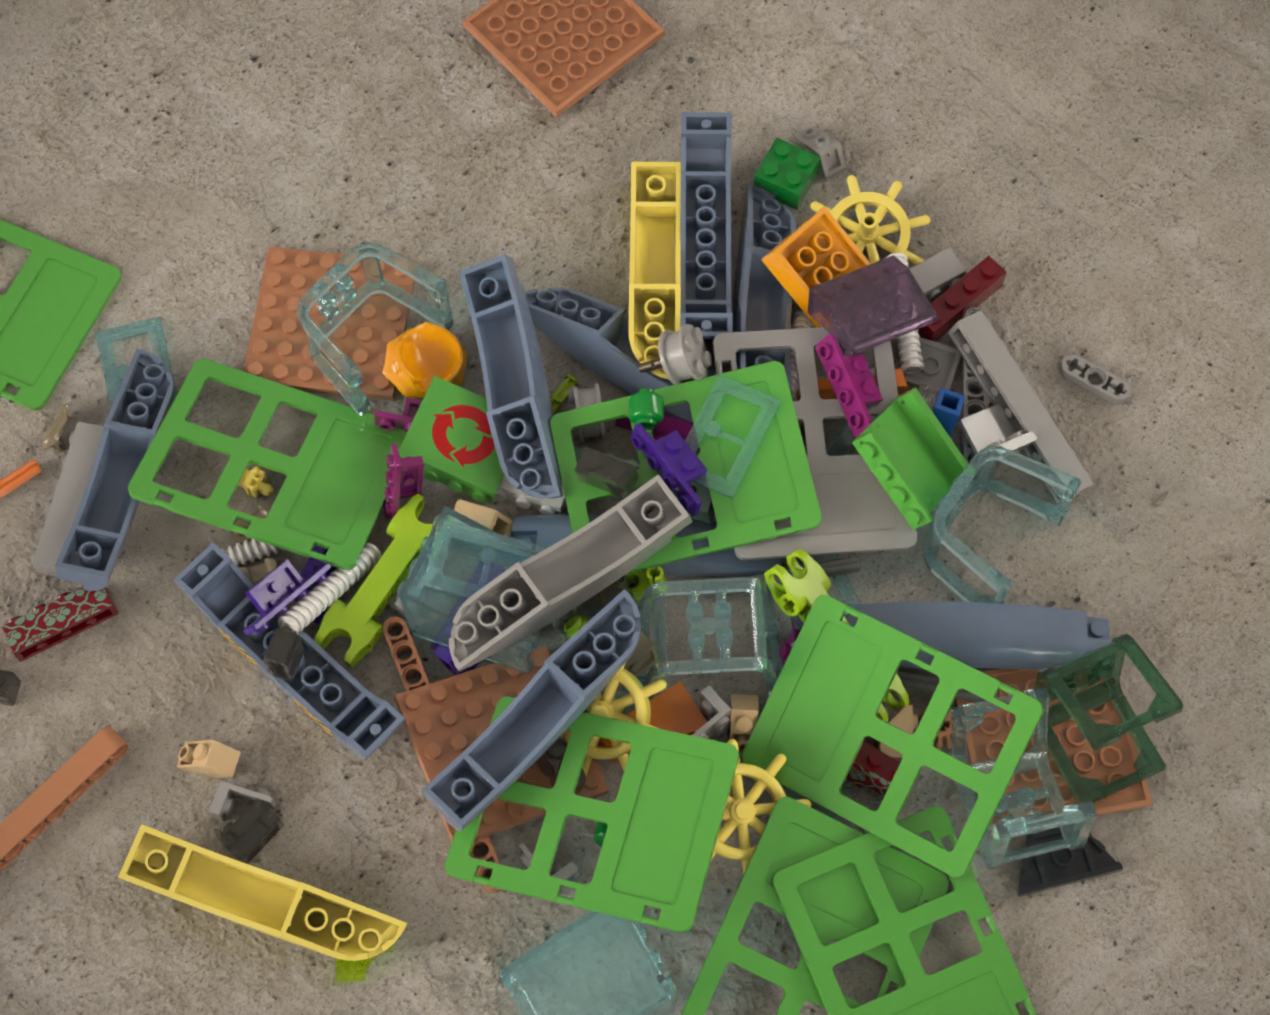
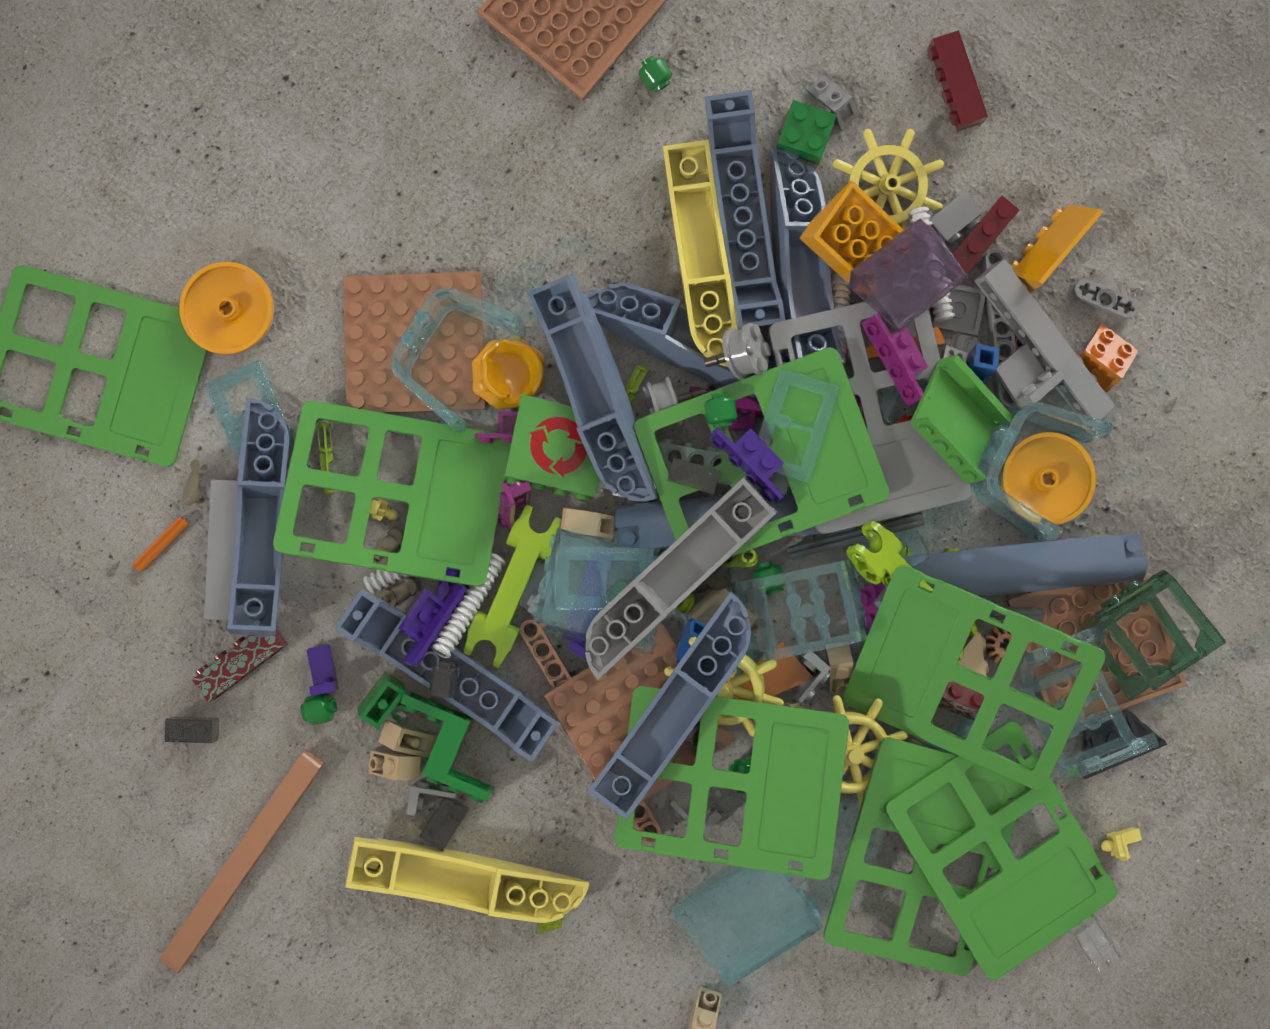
camera: 10 degrees left, 20 degrees up
(136, 683) = (318, 709): none -> green head
(138, 258) = (226, 308): none -> light orange dish
(150, 644) = (322, 670): none -> dark purple bracket
(208, 419) = (325, 453): none -> lime piece
(210, 683) = (382, 701): none -> green brick
(229, 730) = (407, 739): none -> tan slope
(273, 742) = (447, 747): none -> green bracket
(636, 100) = (655, 73): none -> green head
(675, 615) = (769, 569): none -> green head
(955, 147) = (957, 81): none -> dark red brick
(1018, 544) = (1050, 476): none -> light orange dish
(1043, 312) = (1054, 244): none -> light orange slope
(1054, 976) = (1118, 842): none -> light yellow piece
(1091, 436) = (1107, 357): none -> orange bracket

